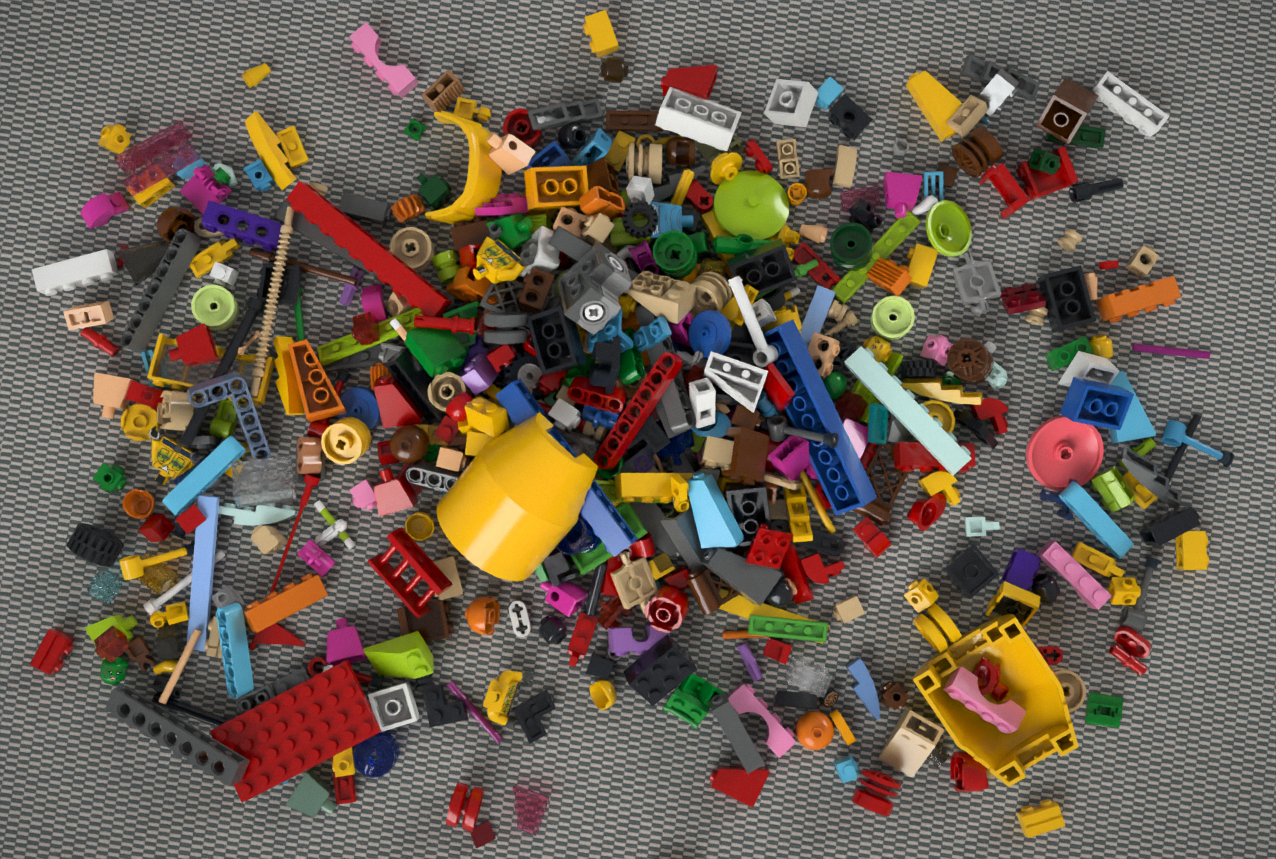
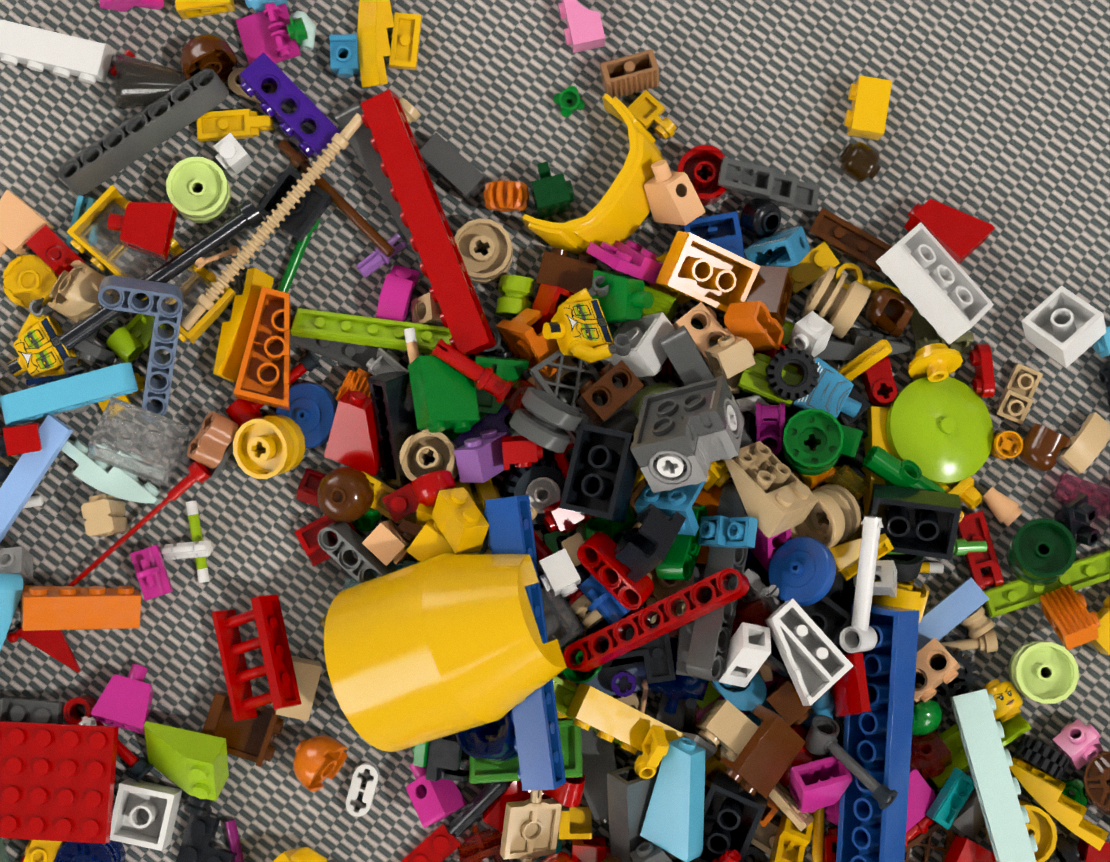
camera: 35 degrees right, 0 degrees up
(88, 315) = (39, 114): light nougat brick -> none
(100, 341) = (36, 153): red pin -> none
(364, 495) = (255, 527): bright pink brick -> none
(365, 328) = (370, 320): clear red brick -> none
(393, 493) = (291, 546): torso -> none
(420, 526) = (301, 603): yellow hair -> none
(552, 630) = (395, 828): black head -> none

